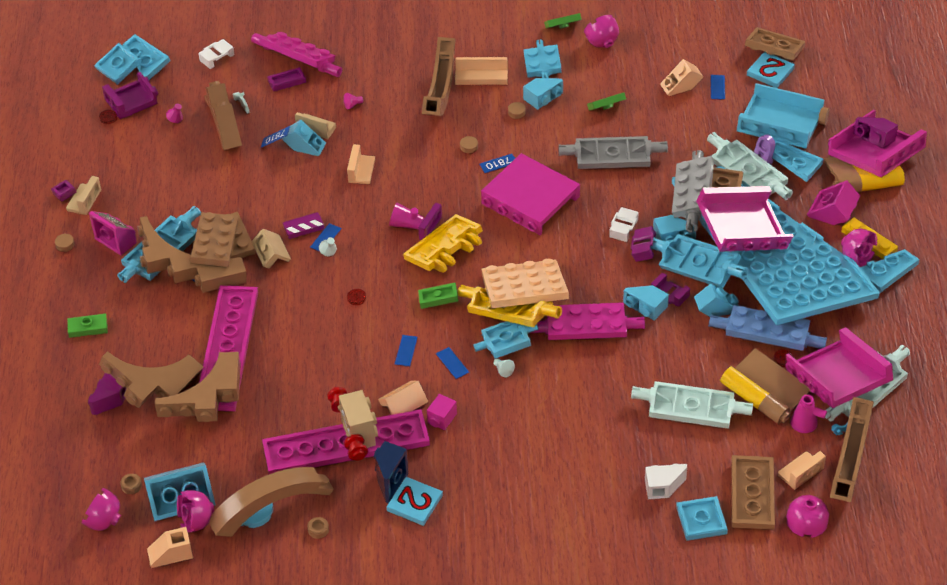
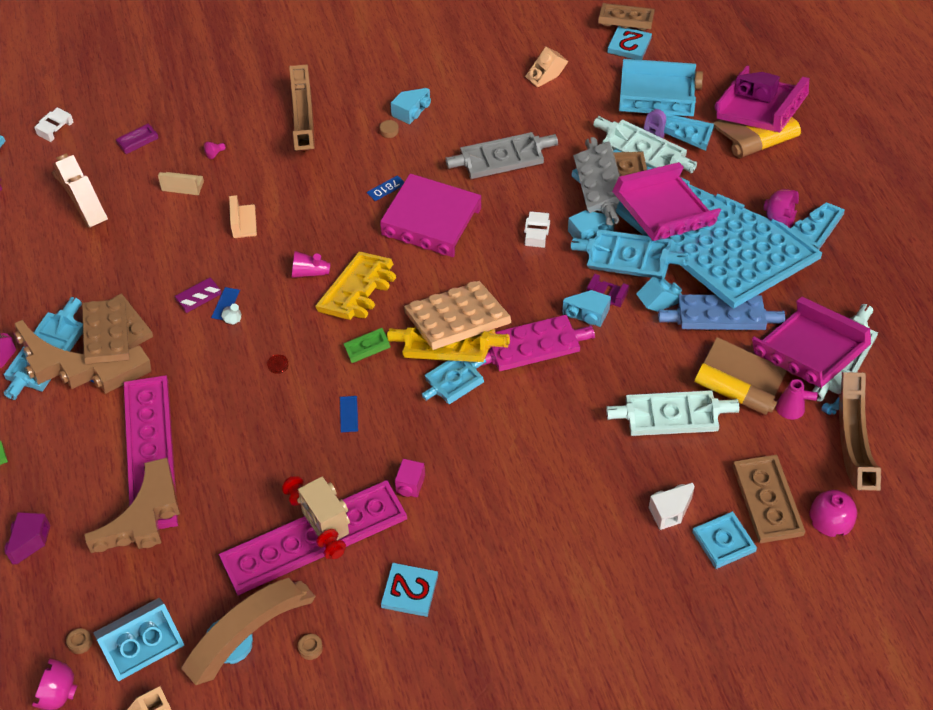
camera: 15 degrees left, 5 degrees up
(145, 381) = (64, 516): medium nougat arch -> none
(175, 115) = (24, 198): dark pink rock -> none
(194, 509) = (163, 659): dark pink cylinder -> none
(239, 96) = (91, 166): light aqua piece -> none
(270, 248) = (168, 327): tan panel -> none
(275, 136) = (141, 203): blue sticker -> none
(300, 51) = (144, 106): dark pink plate -> none
(304, 139) = (173, 200): medium azure slope -> none
(390, 468) = (374, 559): dark blue slope -> none
(405, 398) = (364, 470): light nougat panel -> none
(430, 221) = (335, 264): magenta tile -> none
(452, 362) = (403, 417): blue sticker -> none
(469, 144) = (350, 174): medium nougat tile -> none
(481, 71) = (341, 94): light nougat panel -> none
(505, 367) = (462, 411): light aqua rock -> none
(542, 60) = (400, 73): medium azure plate -> none
(563, 21) = (409, 29): bright green plate -> none
(603, 32) = (454, 33): dark pink cylinder -> none
(606, 102) = (479, 104): bright green plate -> none
(643, 250) = (567, 253): magenta piece -> none
(717, 86) = (583, 69): blue sticker -> none
(780, 357) = (744, 341): clear red piece -> none
(802, 469) = (808, 460): light nougat panel -> none
(834, 203) = (741, 168): dark pink slope -> none
(884, 246) = (805, 205): yellow plate -> none

